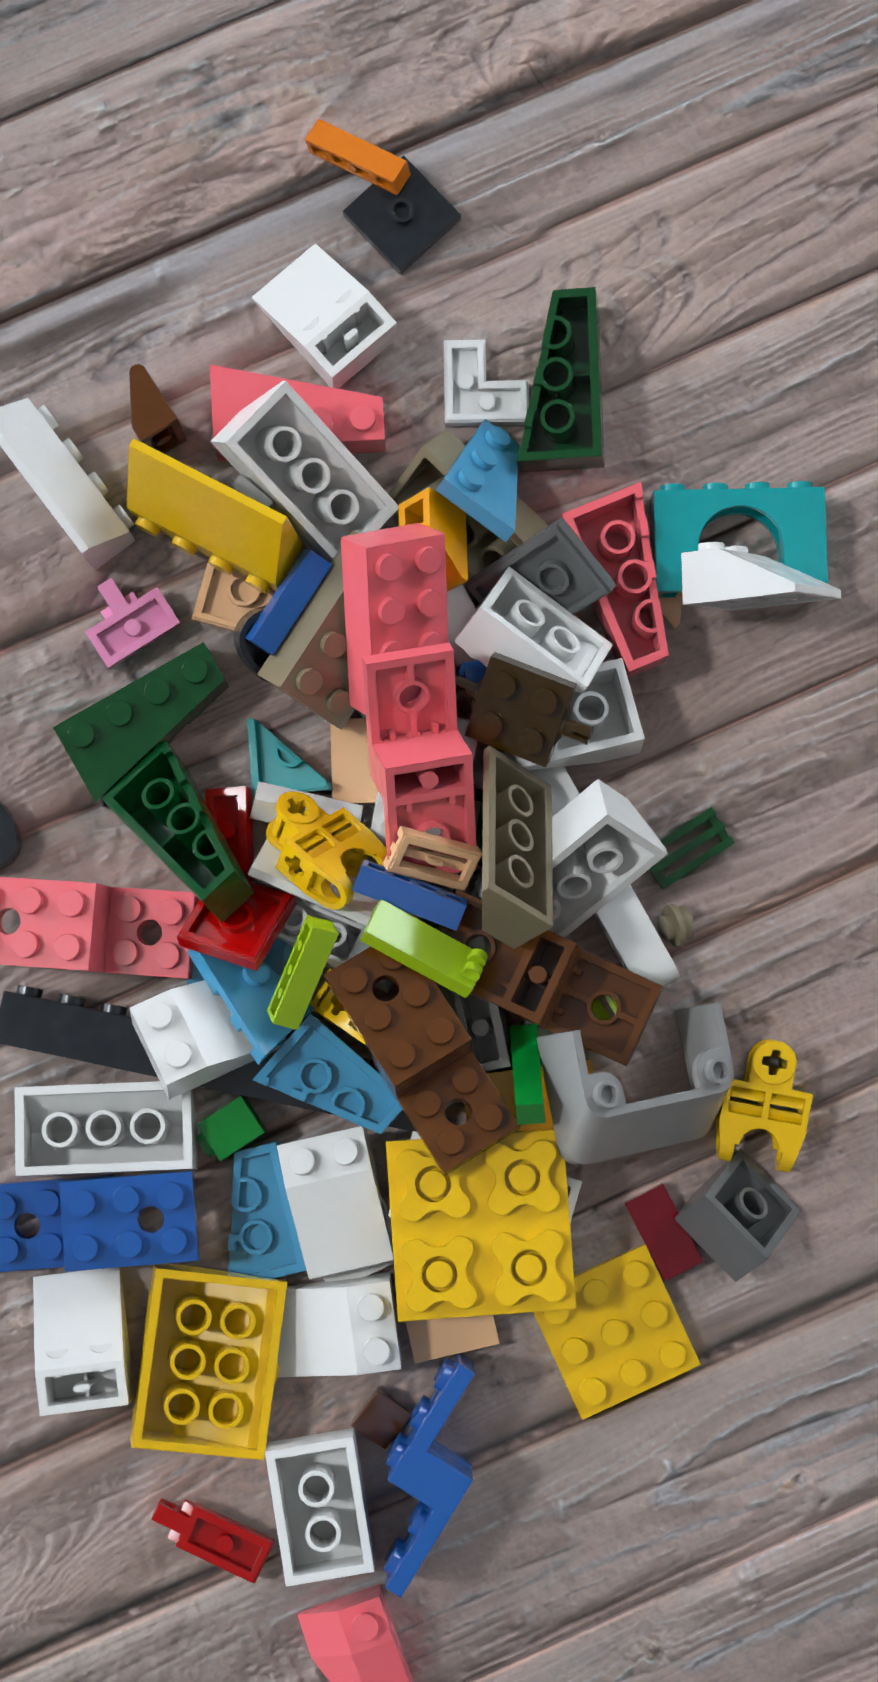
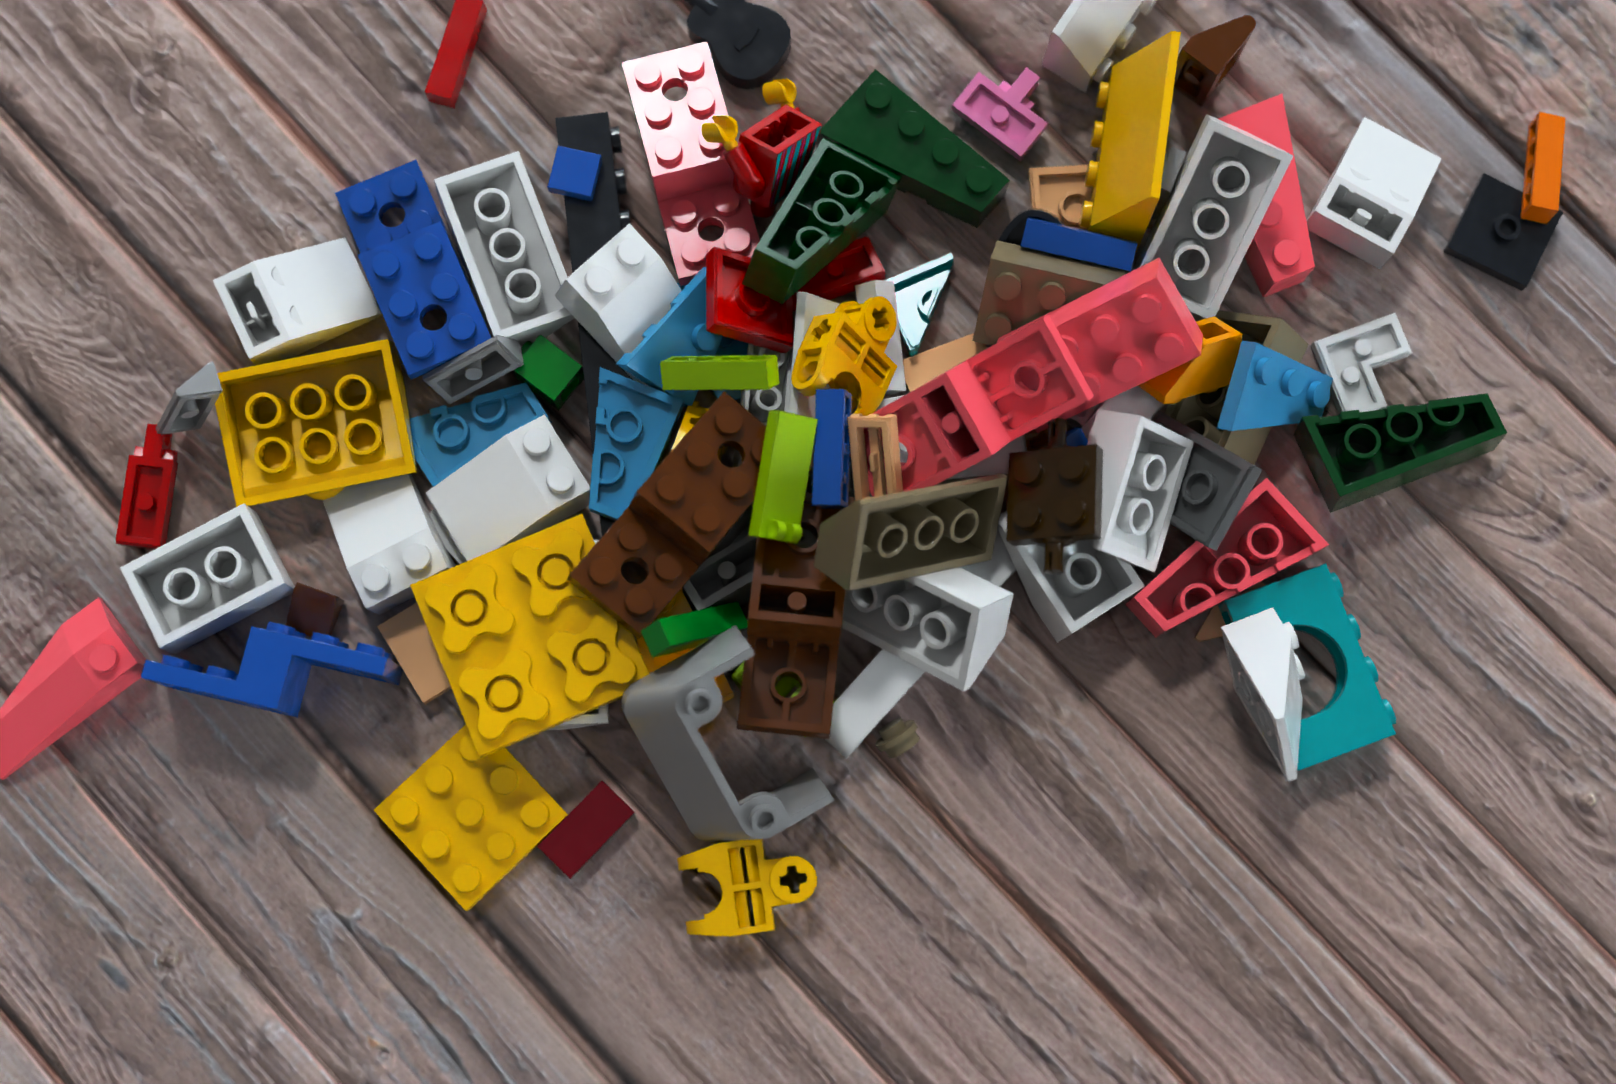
camera: 70 degrees right, 5 degrees down
(54, 1041) = (574, 173): none -> blue tile
(101, 848) = (771, 151): none -> red torso
(152, 1469) = (191, 402): none -> light grey slope
(209, 1194) = (475, 368): none -> light grey slope
(716, 828) = (999, 717): dark green tile -> none
(738, 1216) = (627, 898): dark grey slope -> none

